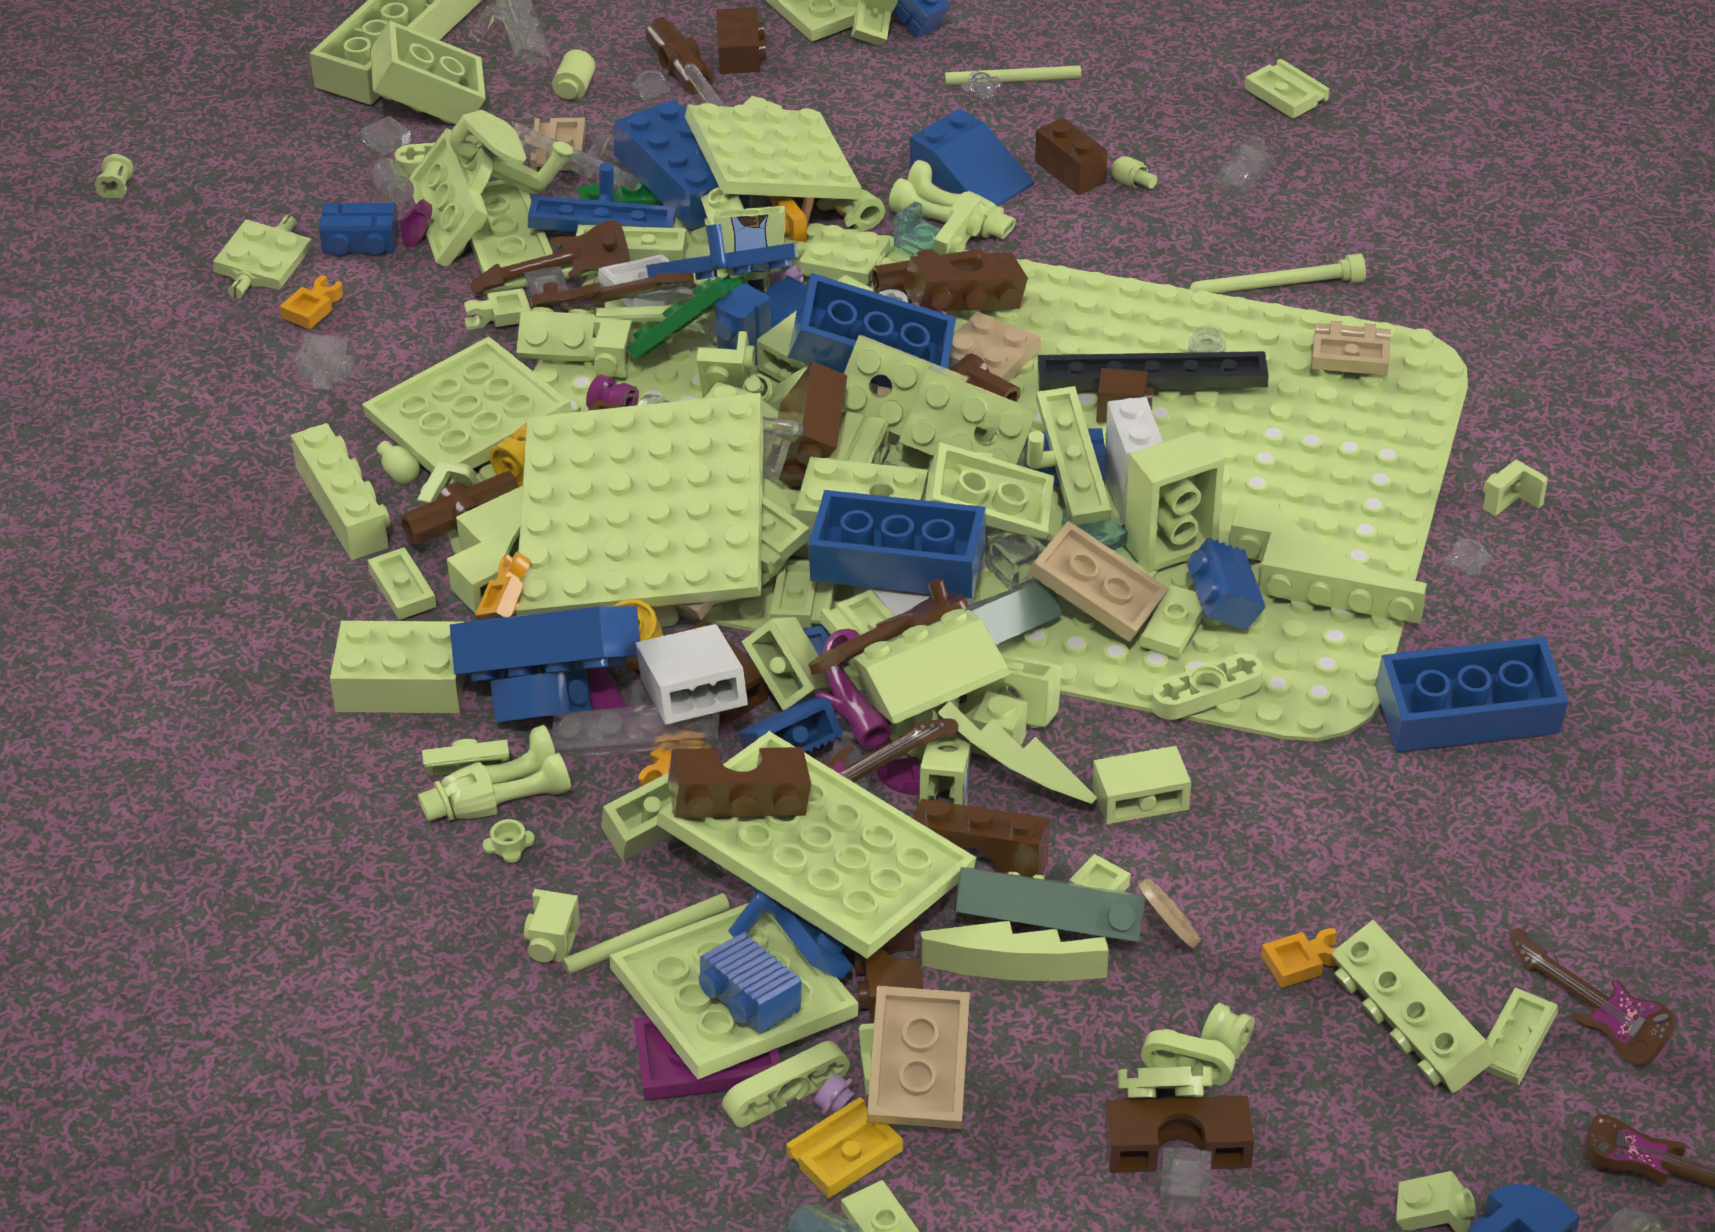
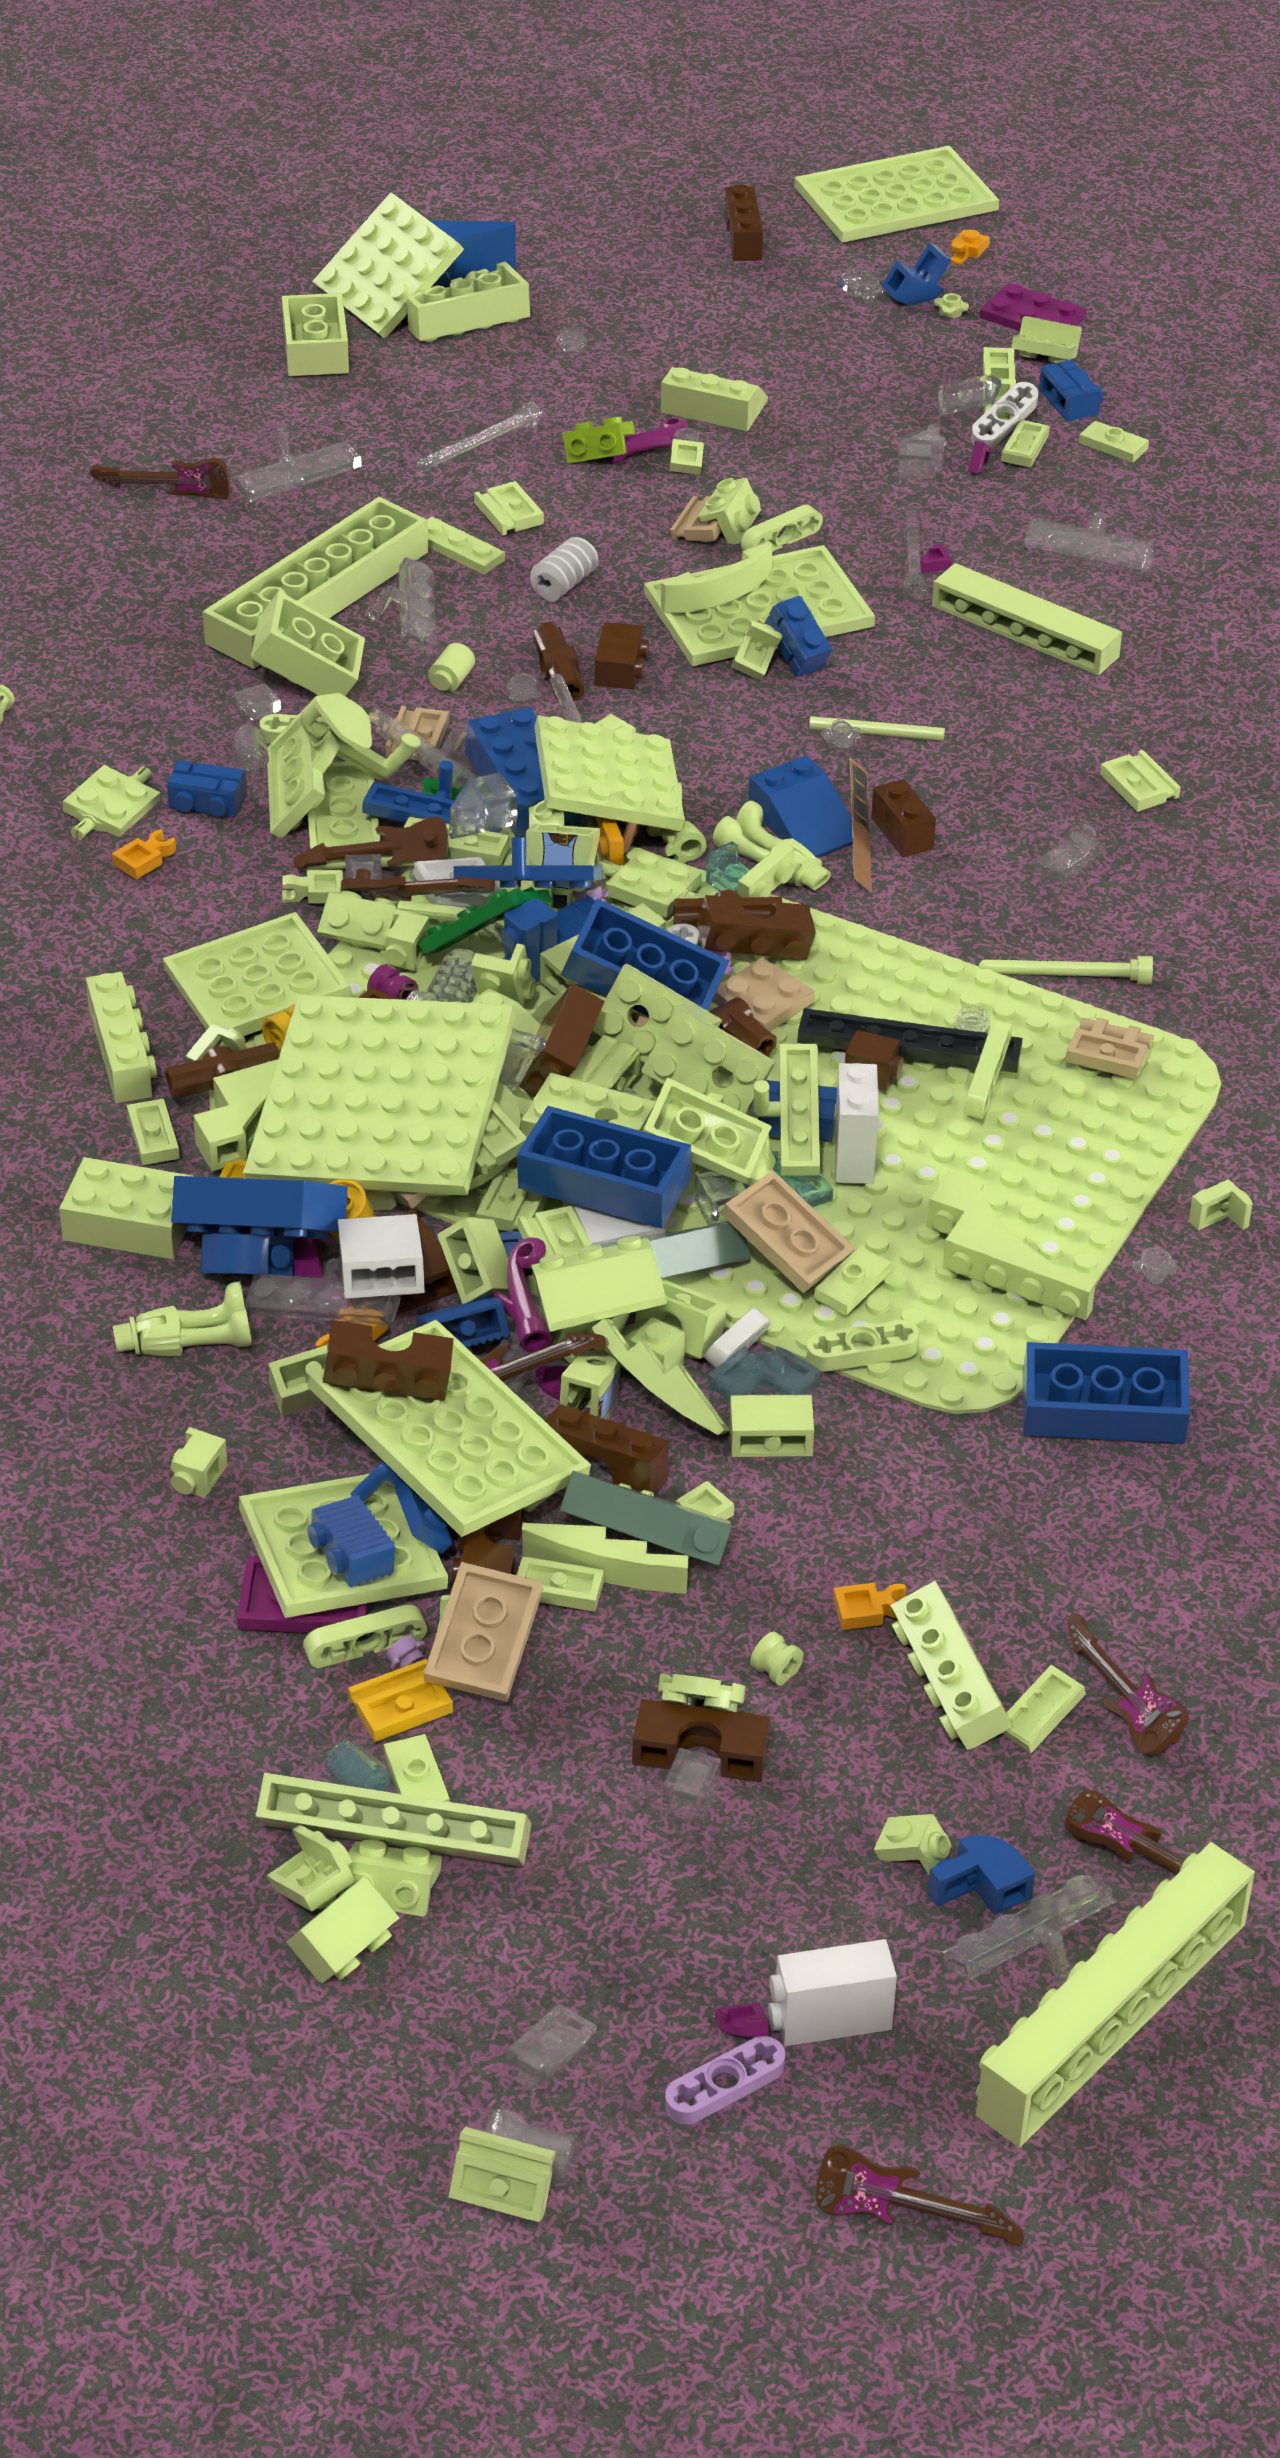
camera: 10 degrees right, 0 degrees up
(324, 360) = (138, 912): clear brick -> none
(398, 463) = (182, 1019): yellowish green cylinder -> none
(415, 223) = (261, 791): magenta tile -> none
(462, 754) = (163, 1295): yellowish green plate -> none
(503, 592) = (234, 1156): light orange plate -> none
(514, 833) = (183, 1380): yellowish green plate -> none
(655, 202) = (483, 806): none -> clear slope
(672, 922) = (231, 1495): yellowish green bar -> none
(677, 375) = (454, 978): none -> clear piece
(760, 384) = (530, 1000): yellowish green cylinder -> none
(921, 614) = (606, 1236): reddish brown piece -> none
(990, 988) = (565, 1583): none -> yellowish green plate
(1029, 170) = (860, 825): none -> medium nougat sticker
(1077, 700) = (739, 1336): none -> white beam
(1129, 170) = (957, 840): yellowish green cylinder -> none
(1129, 725) = (778, 1370): none -> clear light blue plate
(1170, 912) = (755, 1544): tan wheel -> none
(1173, 500) = (877, 1167): yellowish green brick -> none
(1175, 1049) = (721, 1665): yellowish green plate -> none
(1226, 584) = (907, 1253): blue brick -> none
(1243, 386) = (988, 1068): none -> yellowish green beam

